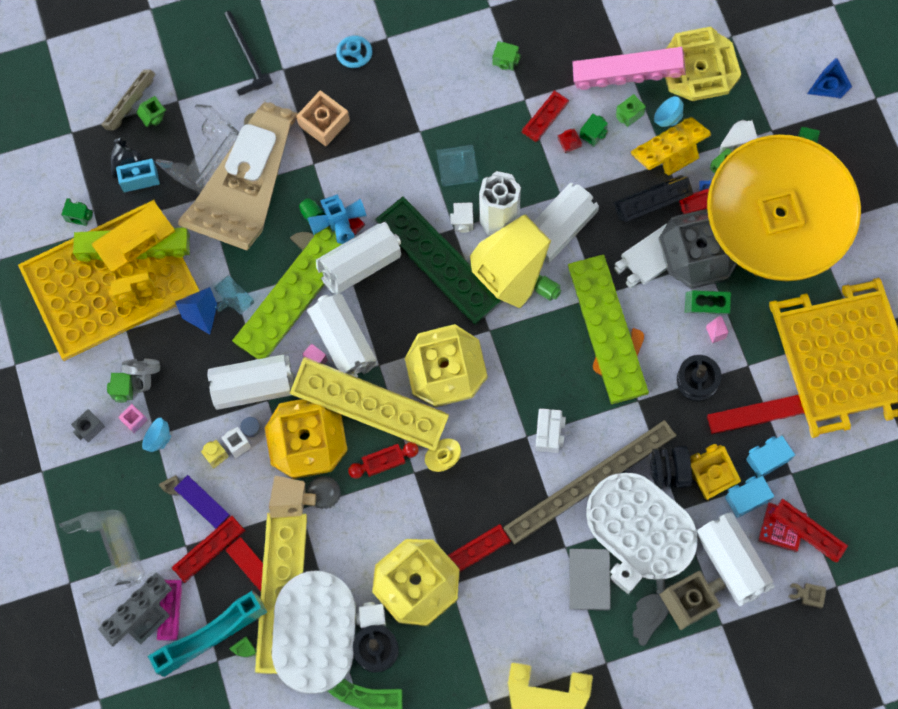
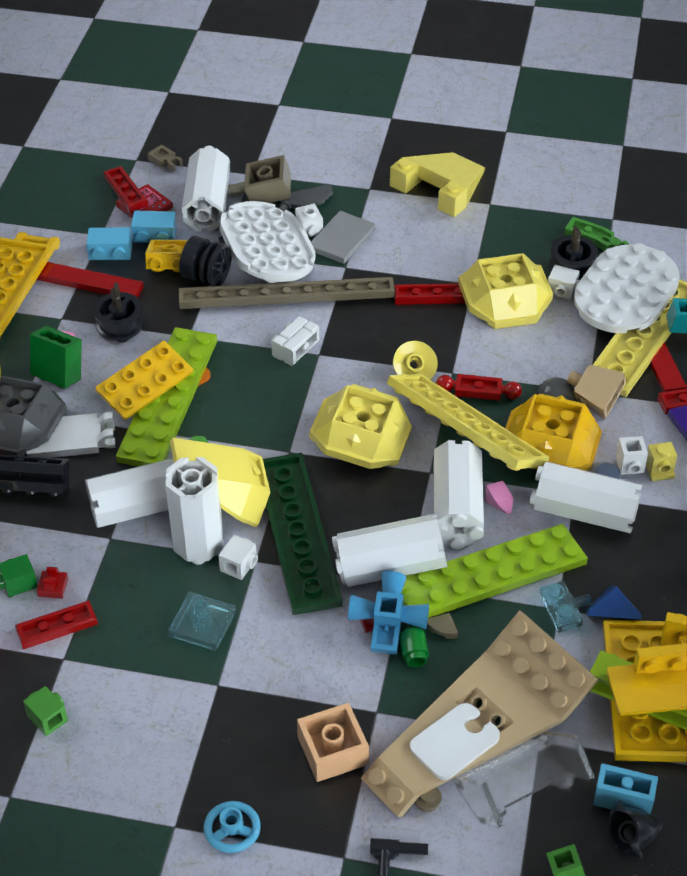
camera: 155 degrees left, 25 degrees down
(628, 319) = (144, 380): none -> yellow bracket

